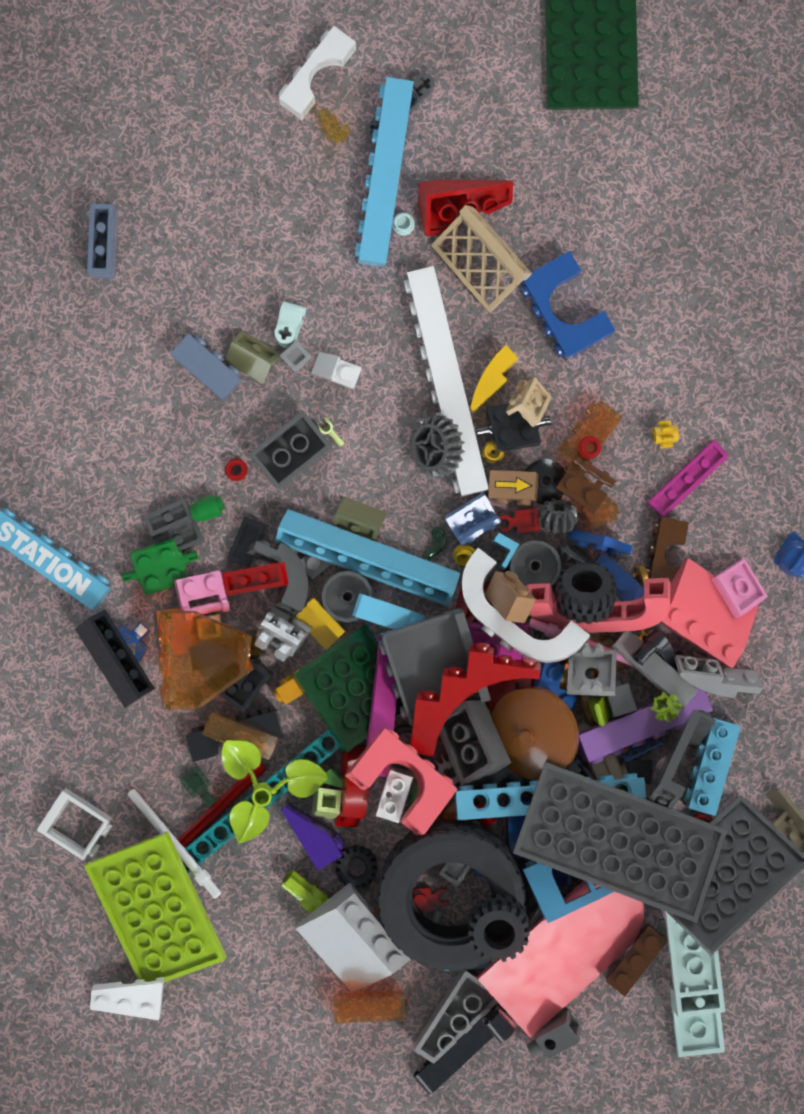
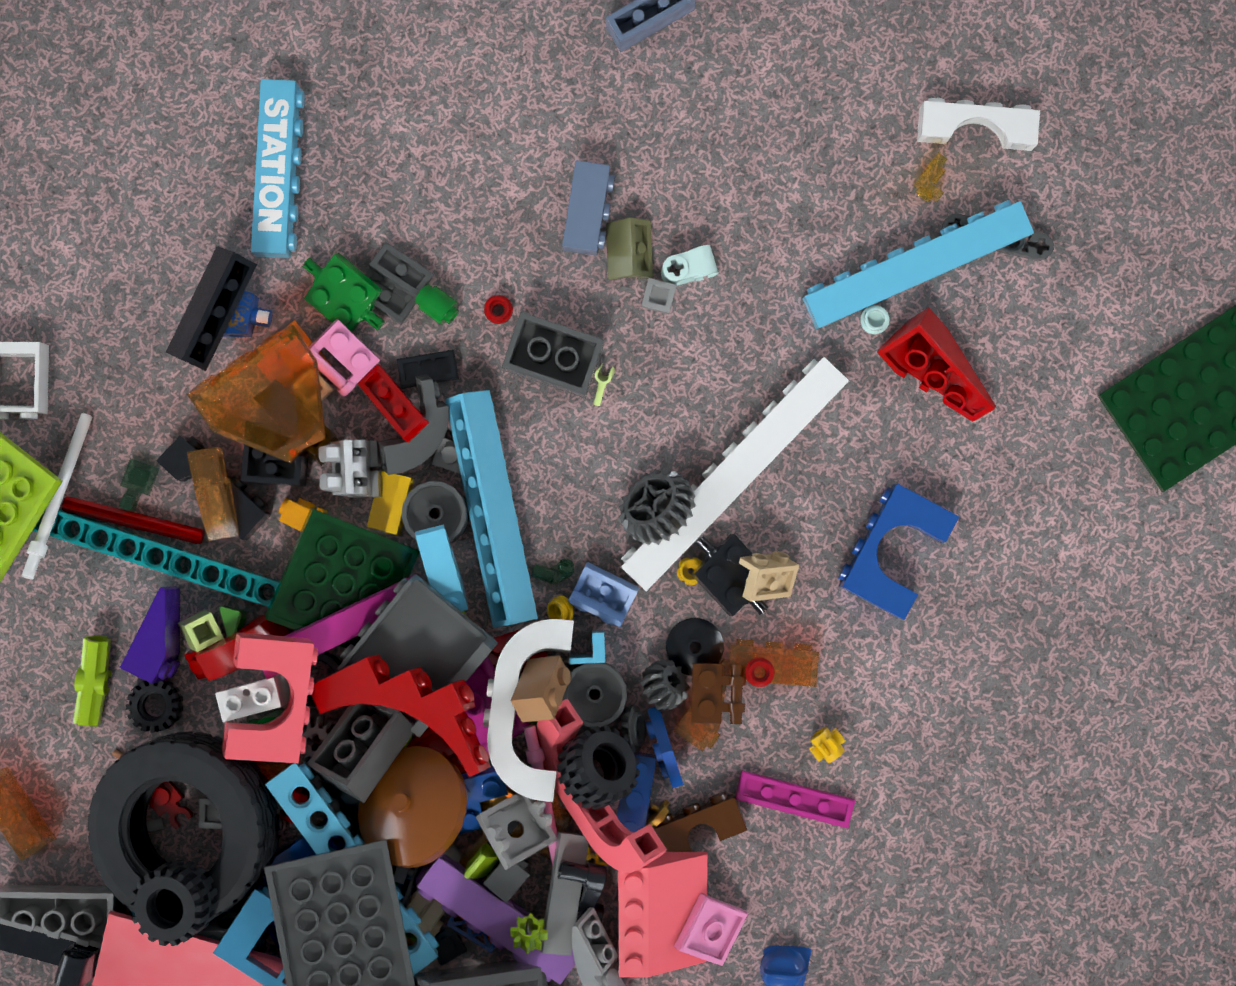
camera: 55 degrees right, 0 degrees up
(241, 758) = (136, 561): lime plant -> none
(336, 370) = (672, 348): white slope -> none
(352, 940) = (72, 749): light grey slope -> none
(359, 518) = (528, 473): olive panel -> none
(492, 242) = (913, 434): tan fence -> none
(493, 377) = (769, 520): yellow slope -> none
(513, 486) = (666, 616): medium nougat brick -> none
(524, 521) = (637, 651): red plate -> none

